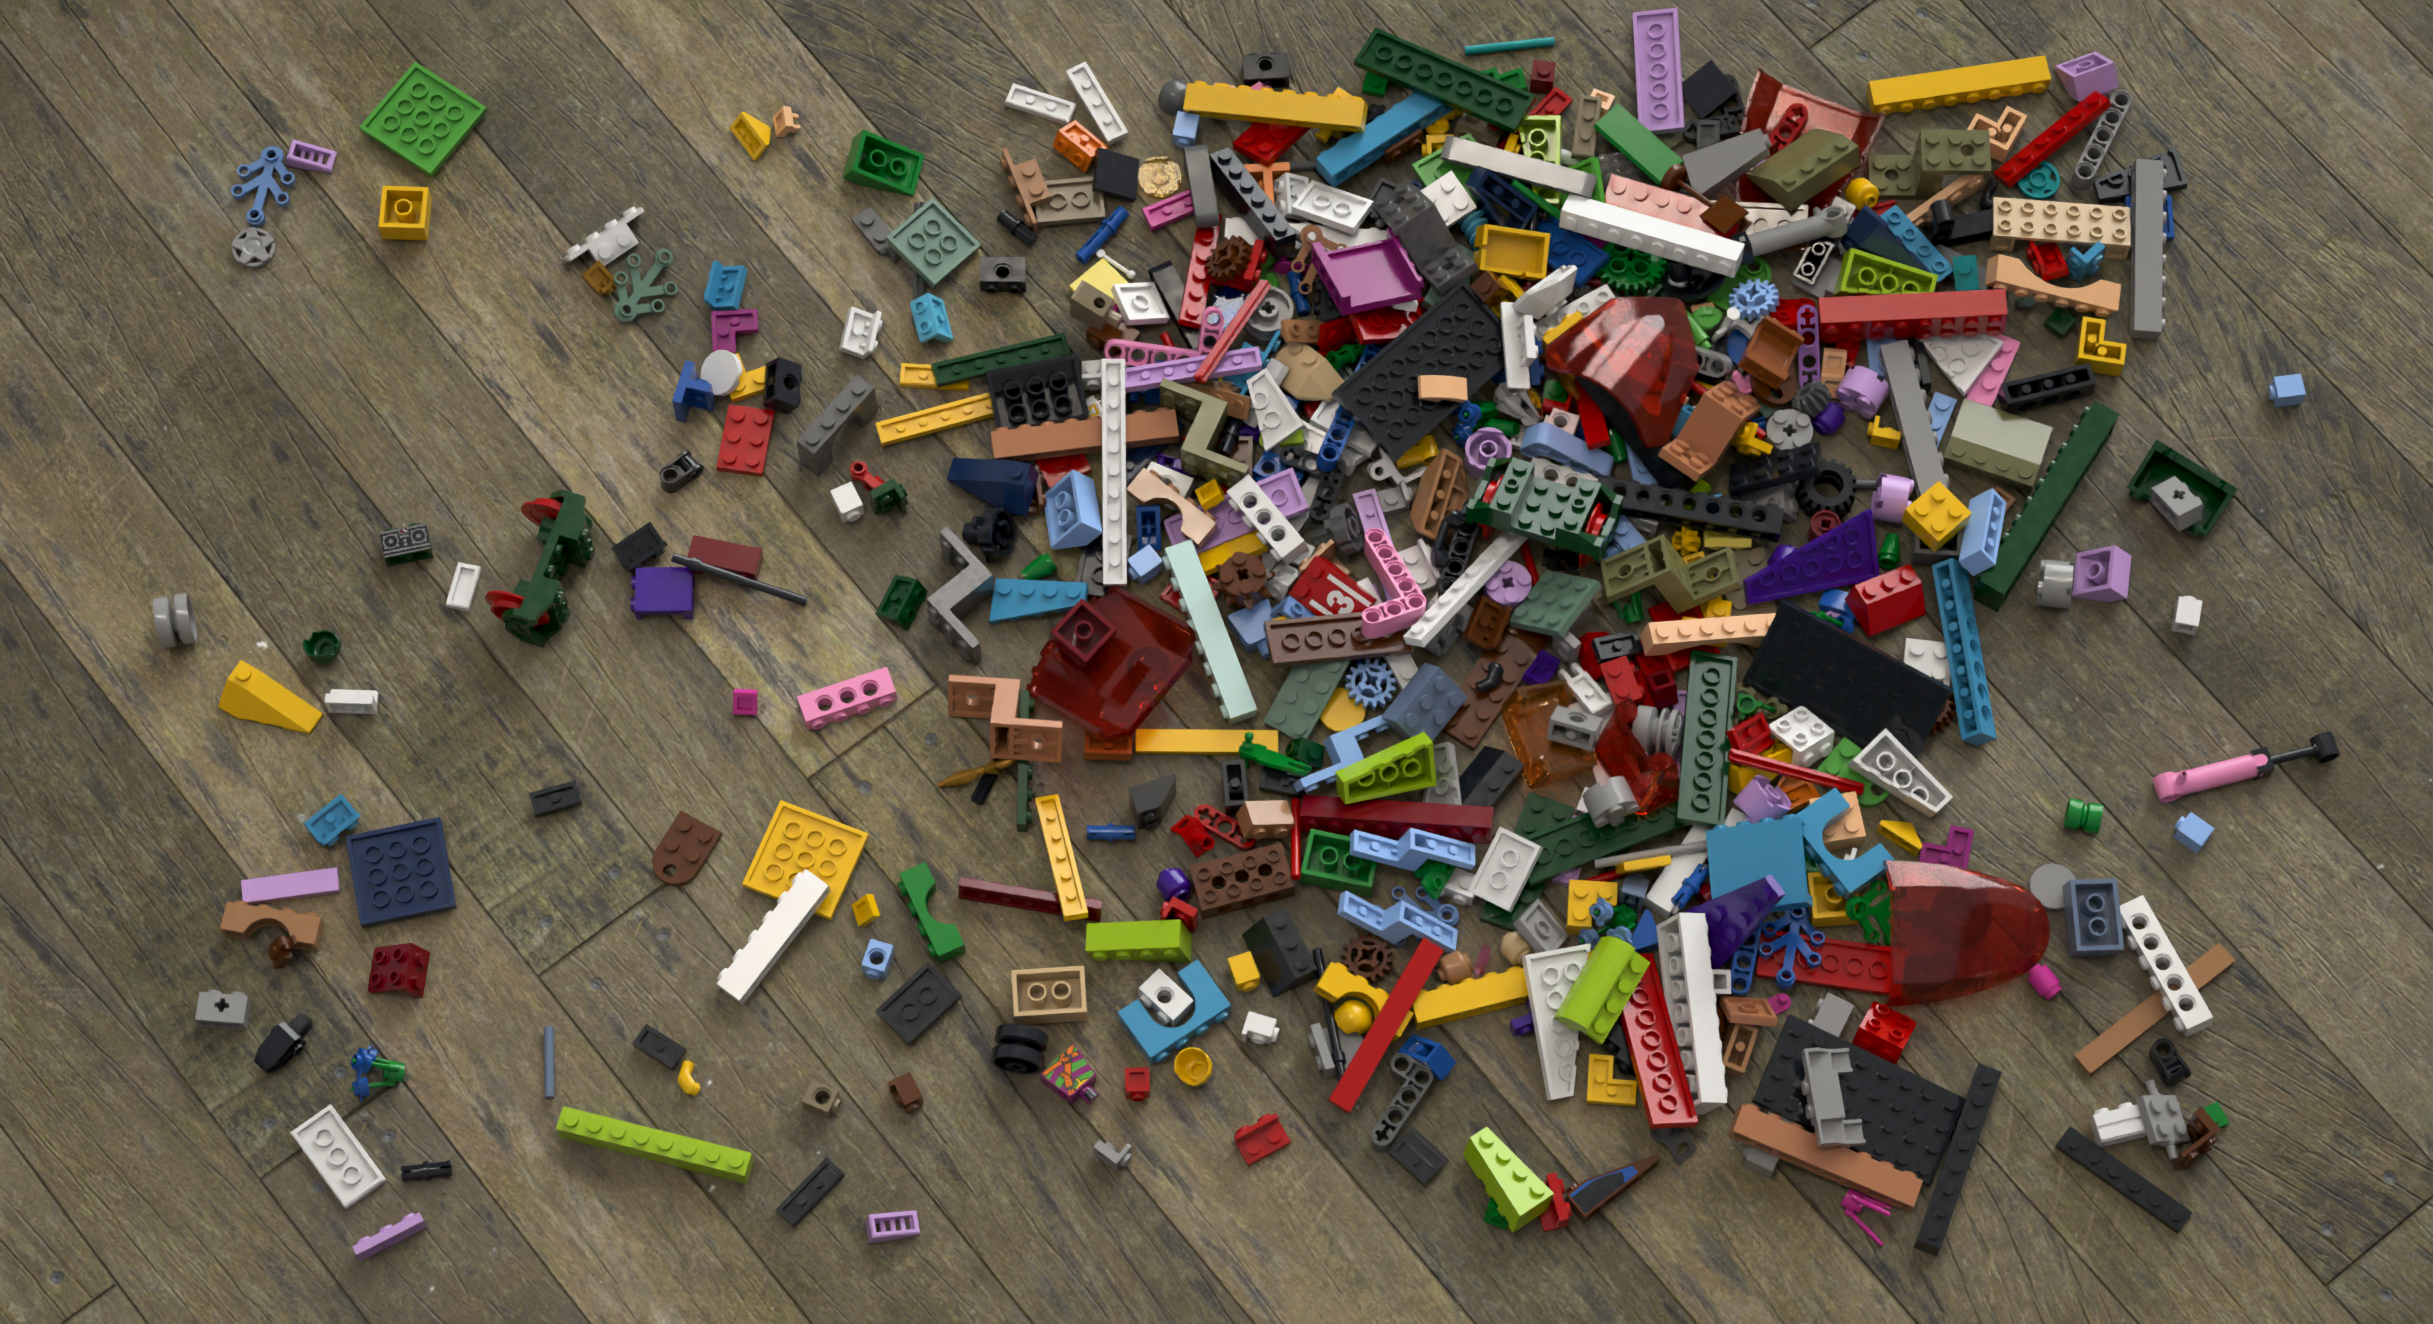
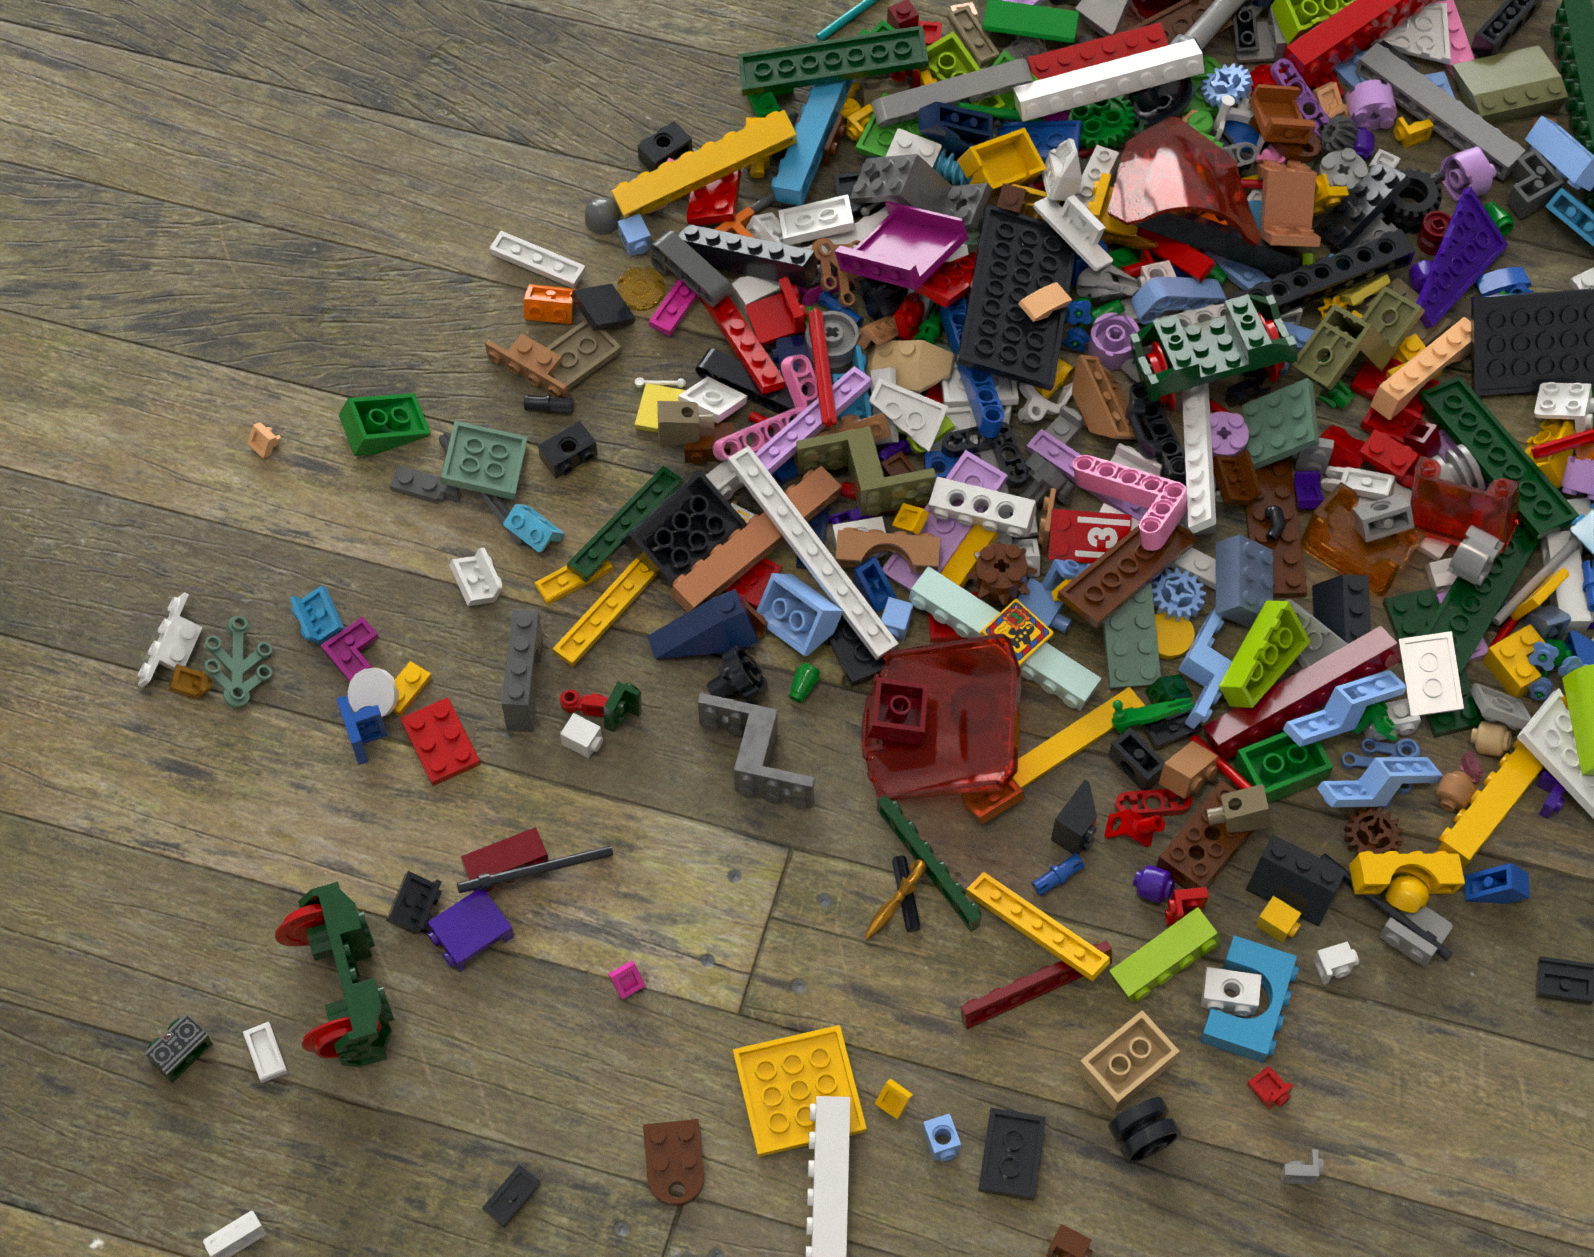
camera: 35 degrees left, 5 degrees down
(322, 646) = (164, 1203): dark green hair -> none
(682, 468) = (400, 804): black piece -> none
(751, 134) = (239, 470): yellow slope -> none
(782, 385) = (440, 669): black brick -> none
(854, 688) = (741, 878): bright pink brick -> none
(902, 601) = (701, 791): dark green bracket -> none
(943, 938) = (986, 1077): green arch -> none
(1009, 734) = (900, 842): nougat bracket -> none
(1026, 598) = (817, 713): dark azure wing -> none
(1040, 104) = (486, 290): white tile -> none
(1071, 1077) = (1207, 1123): torso -> none
(1107, 228) = (630, 357): blue pin -> none
(1193, 1066) = (1308, 1036): yellow hair -> none
(1217, 633) = (1023, 629): none -> tile
(1229, 259) = (766, 311): reddish brown gear -> none
(1229, 436) = (886, 459): black pin -> none
(1261, 1139) = (1420, 1062): red bracket -> none
(1269, 872) = (1242, 810): none -> dark tan torso
(1385, 1025) = (1448, 881): red tile -> none
(1398, 1106) = (1510, 947): dark grey beam -> none
(1616, 646) = (1358, 428): black plate -> none
(1722, 214) = (1147, 30): reddish brown piece -> none
(1749, 706) = (1508, 407): plant -> none
(1751, 735) = (1528, 429): red plate -> none
(1838, 446) = (1385, 157): none -> white tile
(1887, 600) = (1535, 255): red slope -> none
(1936, 516) = (1524, 160): yellow brick -> none

